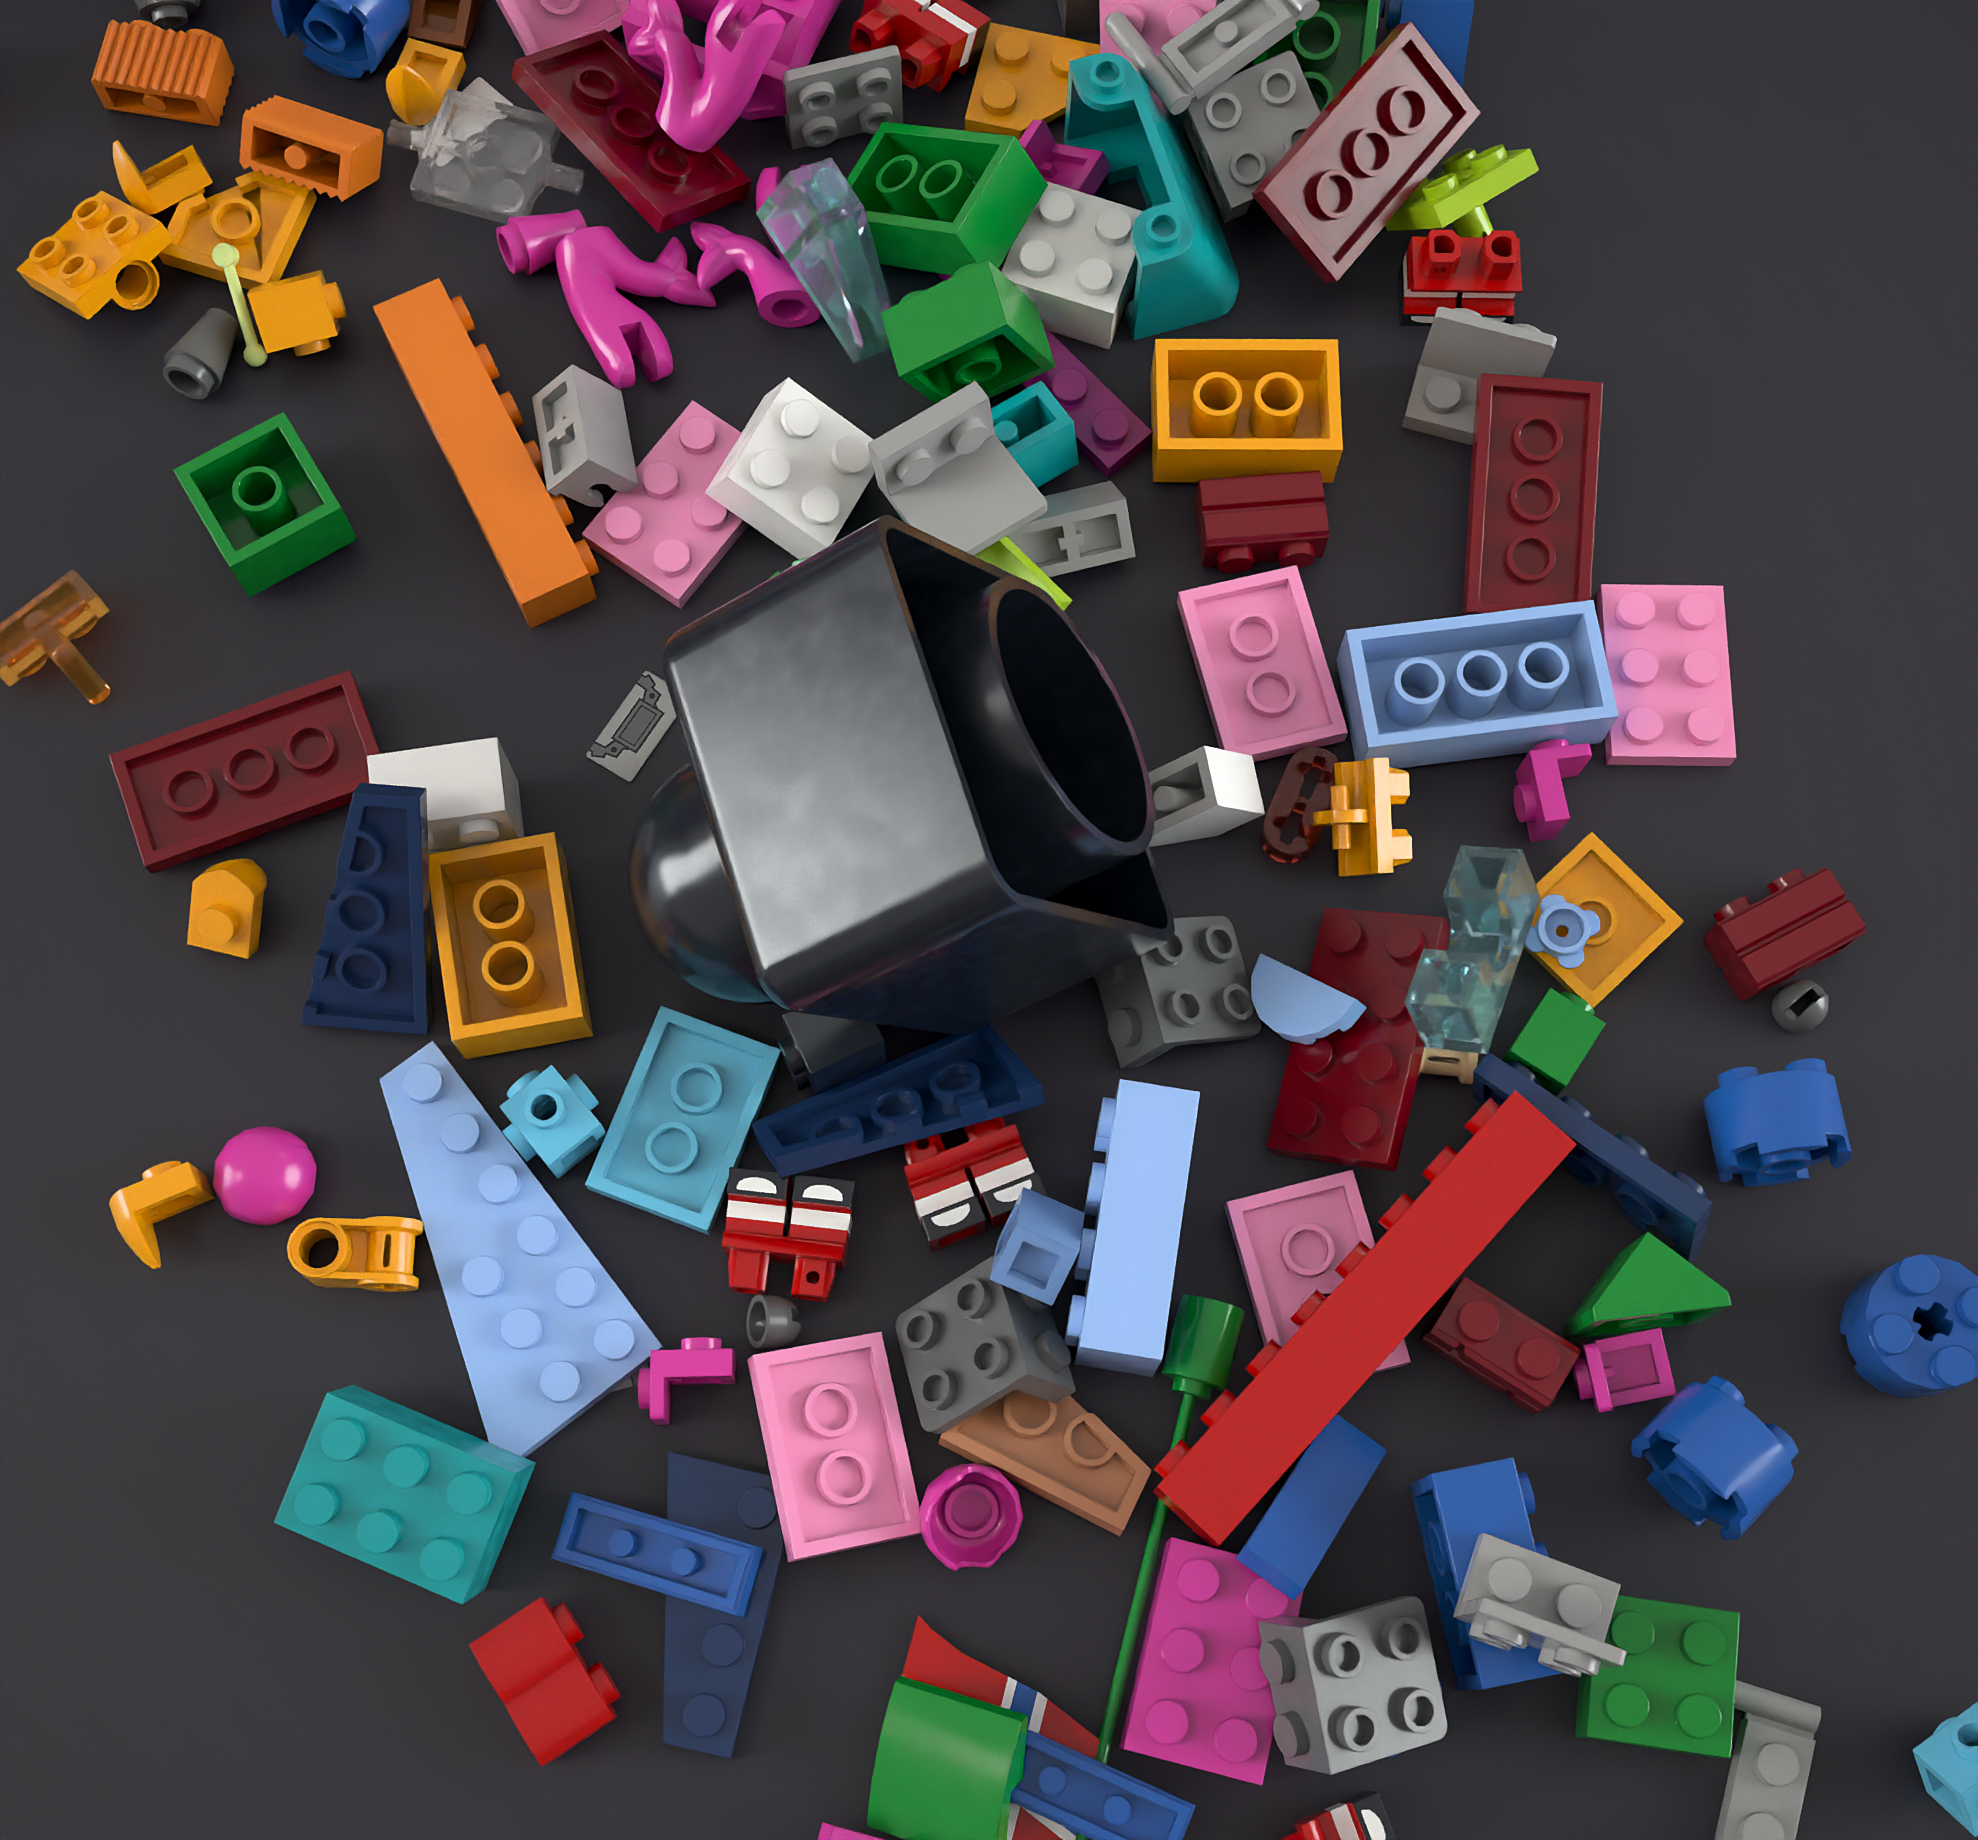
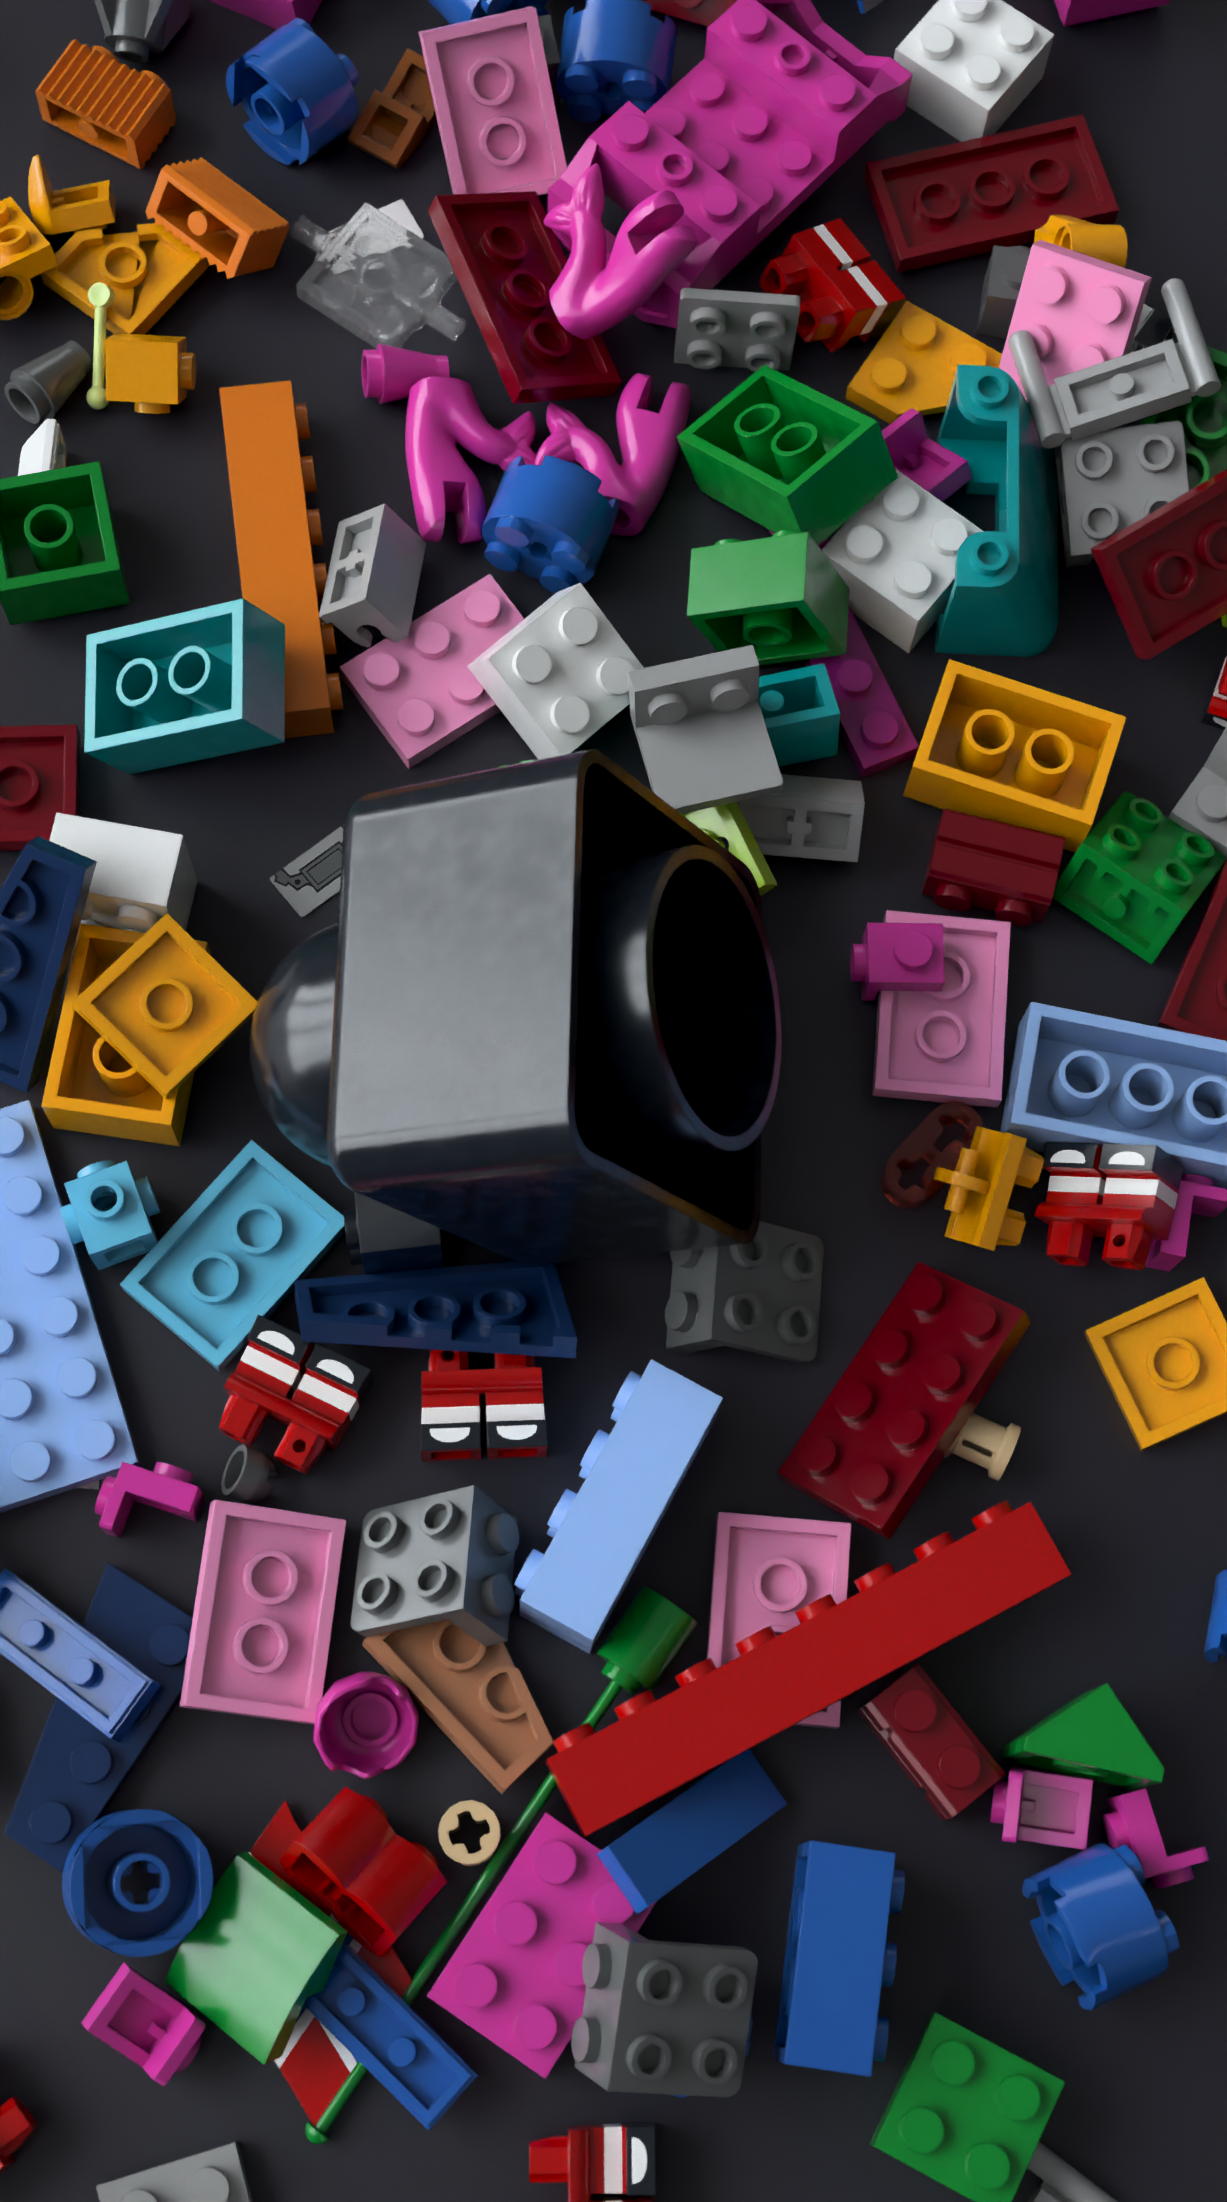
camera: 15 degrees right, 0 degrees up
(221, 420) = (43, 450): none -> white slope
(422, 79) = (345, 185): light orange plate -> none
(444, 598) = (185, 687): none -> teal brick
(538, 904) = (166, 1005): none -> light orange plate
(733, 333) = (549, 522): none -> blue brick
(832, 253) = (669, 475): clear light blue slope -> none
(846, 1758) = (165, 1910): none -> blue brick
(1019, 1654) = (363, 1870): none -> red brick
(1037, 1246) = (518, 1491): medium blue brick -> none
(1105, 1562) = (450, 1824): none -> tan bush
(1203, 795) = (832, 1114): white slope -> none
(1206, 633) = (898, 958): none -> dark pink bracket
(1299, 1005) = (855, 1346): light blue tile -> none
(1397, 485) = (1137, 875): none -> green bracket
(1463, 990) = (1013, 1390): clear light blue arch -> none
(1479, 784) = (1111, 1194): none -> red hips
(1539, 1603) = (868, 2001): light grey bracket -> none
(1555, 1039) = (1091, 1467): green brick -> none
(1580, 927) = (1138, 1344): light blue plate -> none
(1618, 1162) = (1093, 1596): dark blue wing -> none
(1710, 1353) = (1134, 1824): none -> dark pink bracket

